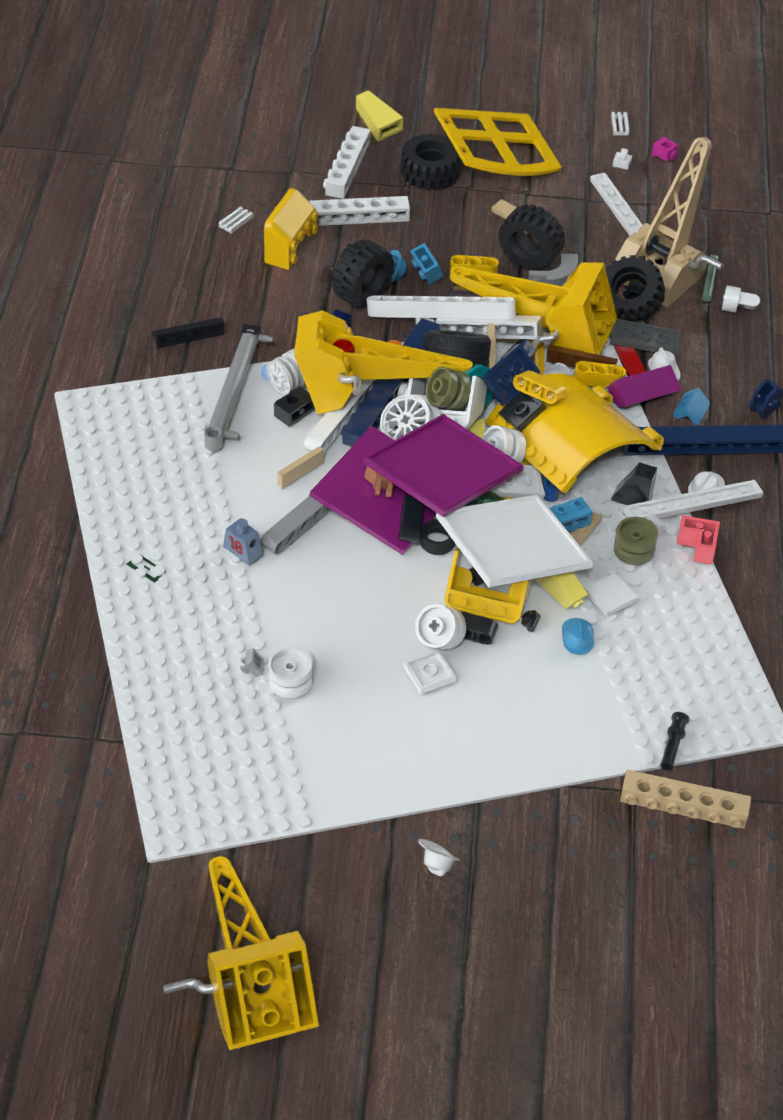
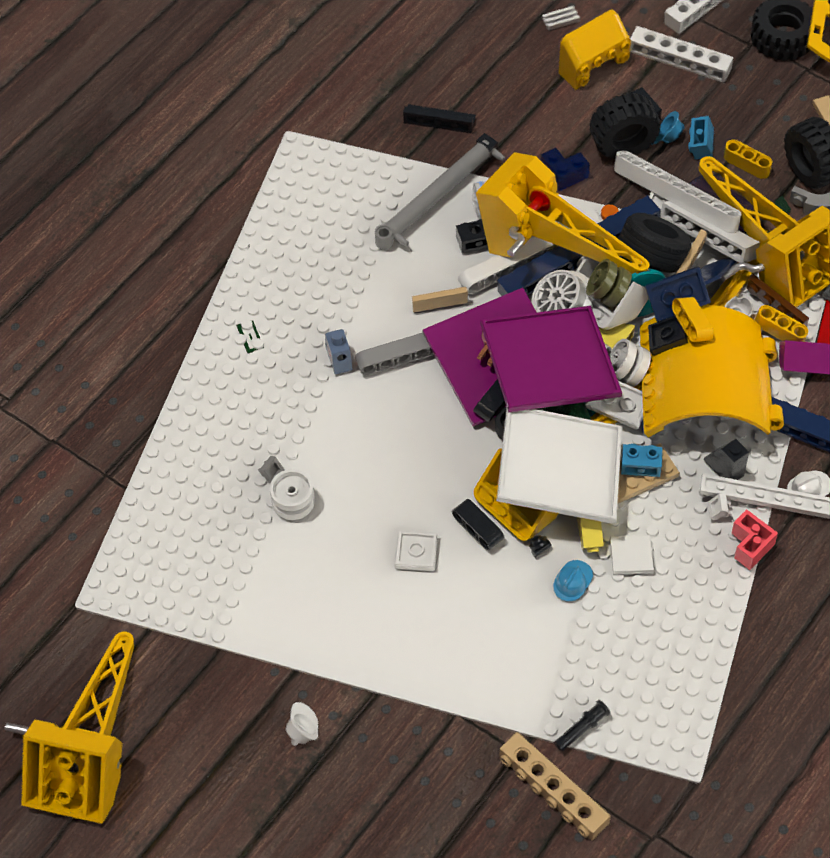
camera: 35 degrees right, 10 degrees up
(440, 626) = (445, 515): white wheel -> none
(635, 540) = (688, 513): olive wheel -> none

